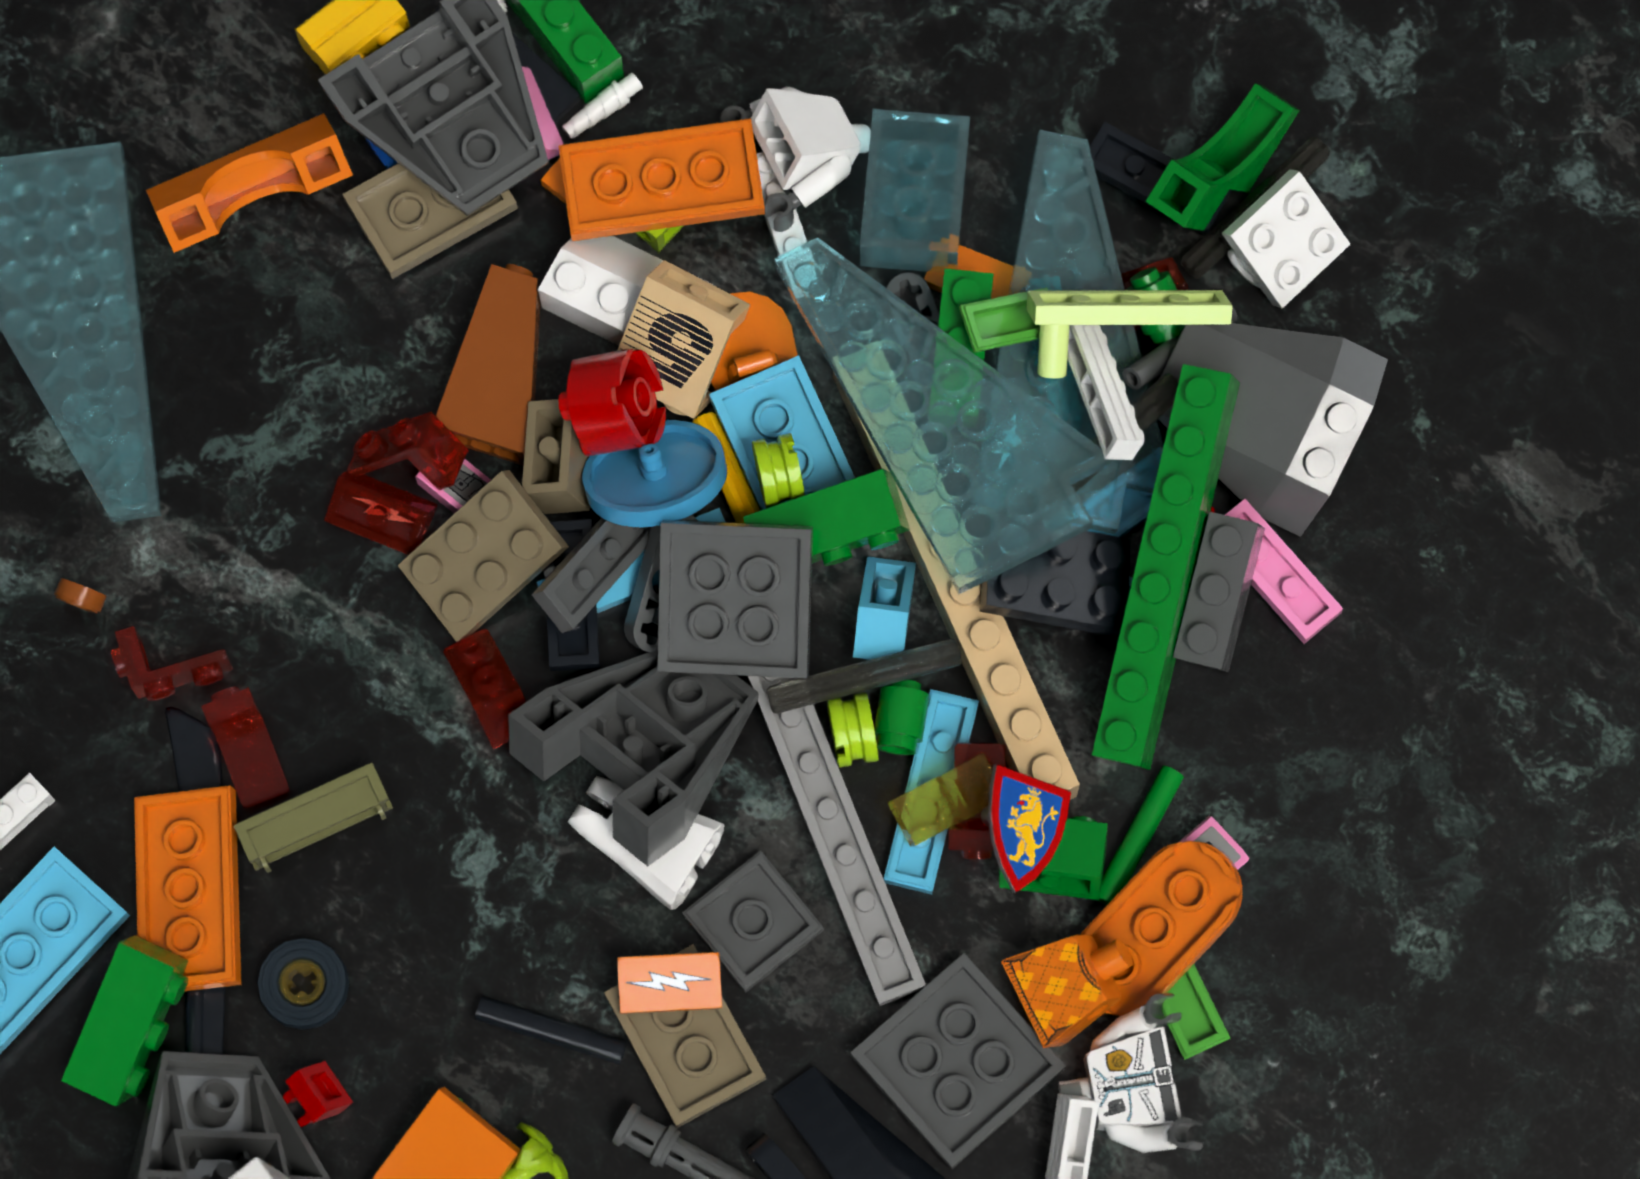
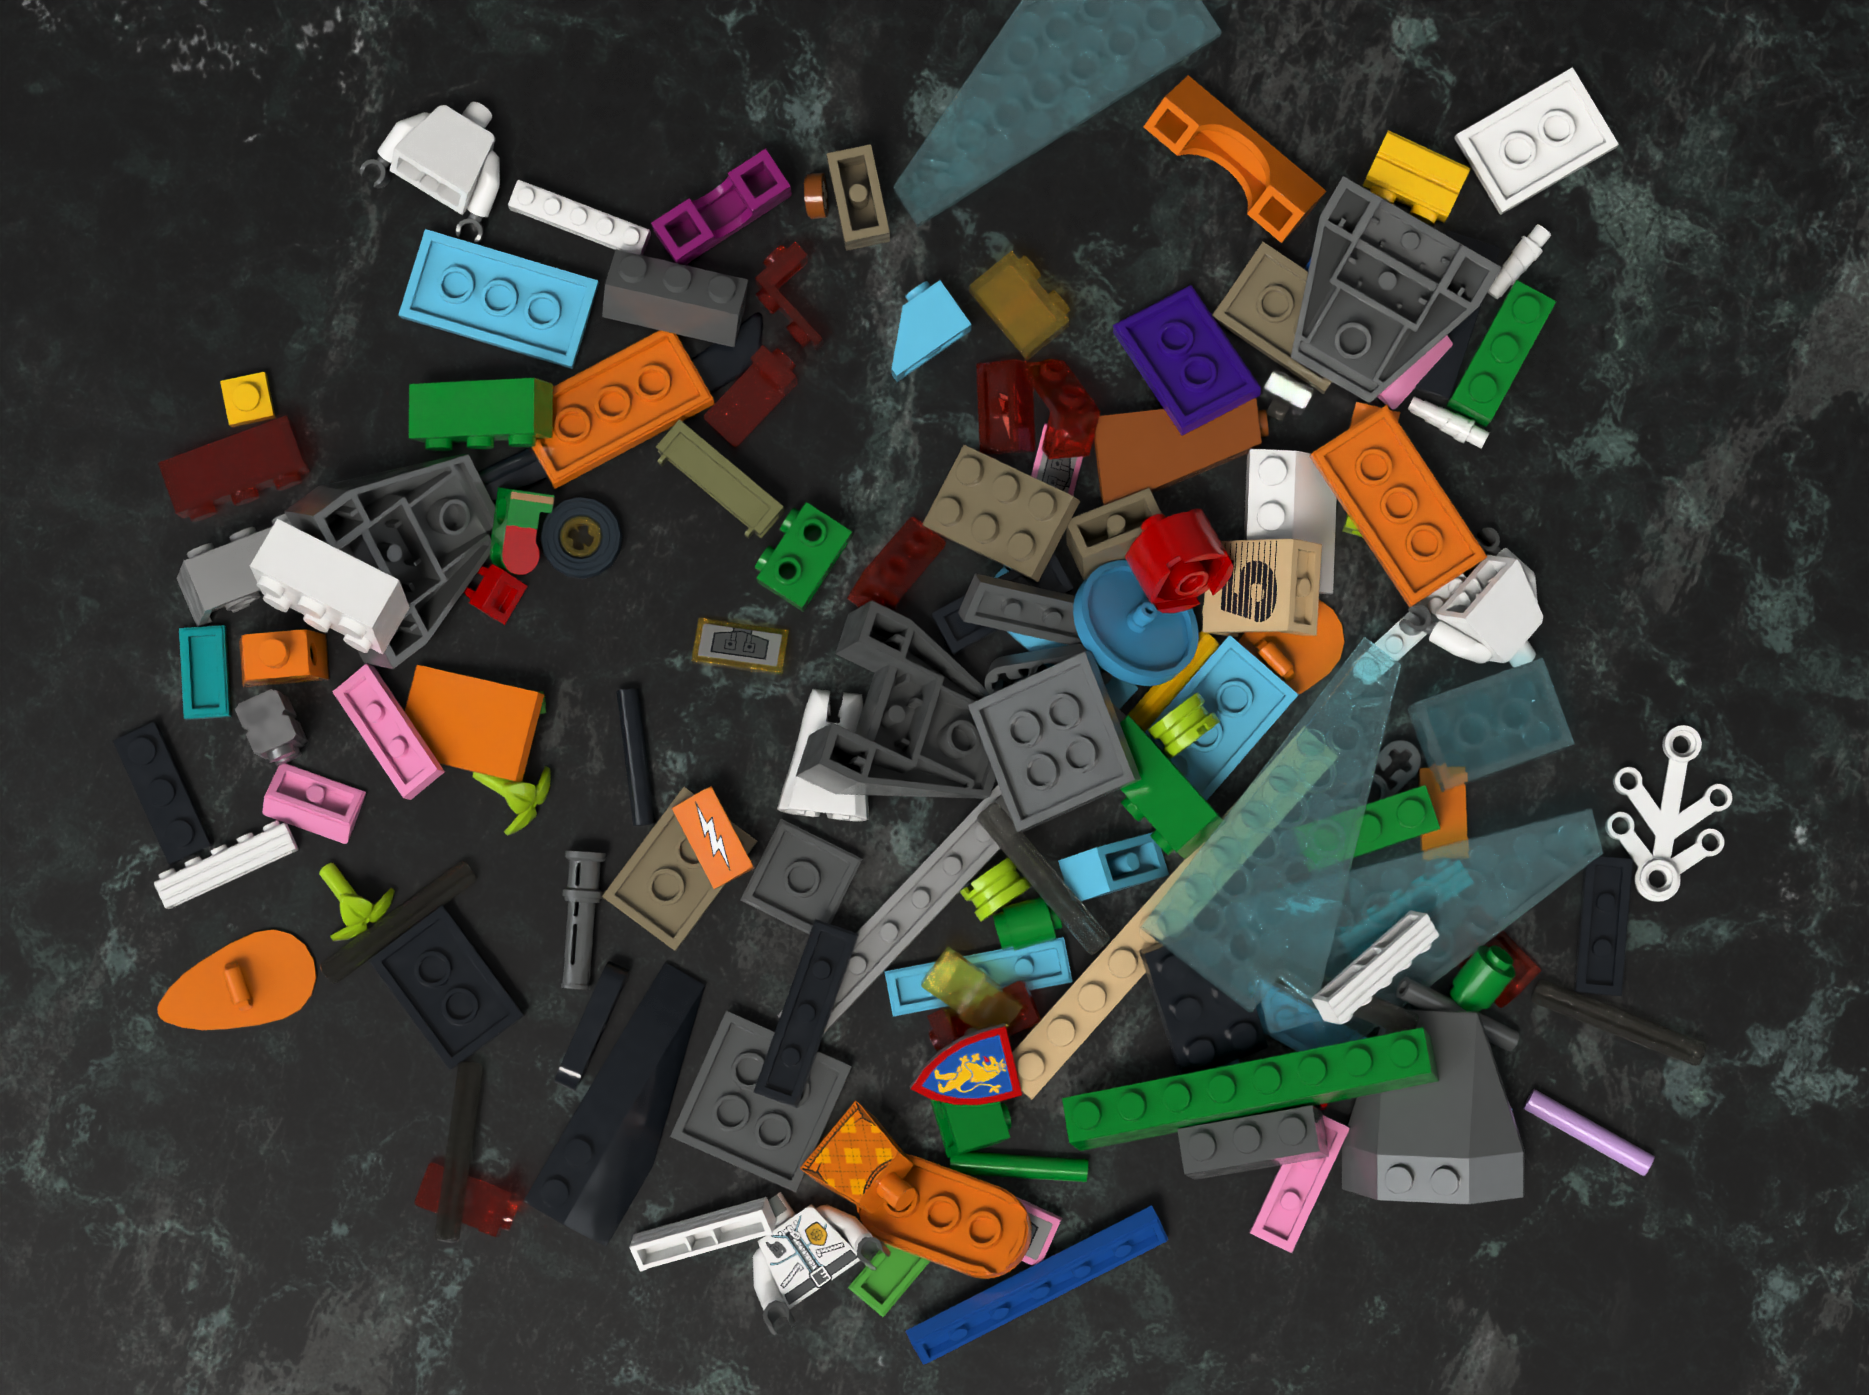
camera: 65 degrees right, 10 degrees up
(48, 689) = (739, 200): none -> magenta arch
(102, 552) = (858, 197): none -> dark tan brick
(110, 776) = (674, 298): none -> dark grey brick
(262, 1041) = (515, 529): none -> leg
(263, 547) = (926, 327): none -> medium azure slope
(287, 449) = (1021, 304): none -> clear yellow brick
(421, 314) = (1186, 360): none -> dark purple tile
(431, 769) = (803, 555): none -> green brick
(491, 875) = (740, 646): none -> slope
(501, 239) = (1287, 392): none -> clear smoke tile
(890, 971) = (806, 1013): none -> black tile
(999, 322) = (1403, 861): bright green tile -> none
(1060, 309) = (1451, 943): yellowish green piece -> none
(1081, 78) = (1667, 821): none -> white plant
(1230, 160) = (1639, 981): green arch -> none
(1266, 870) = (1037, 1285): none -> blue tile
(1284, 239) = (1597, 1061): white plate -> none
(1349, 282) = (1588, 1132): none -> lavender piece

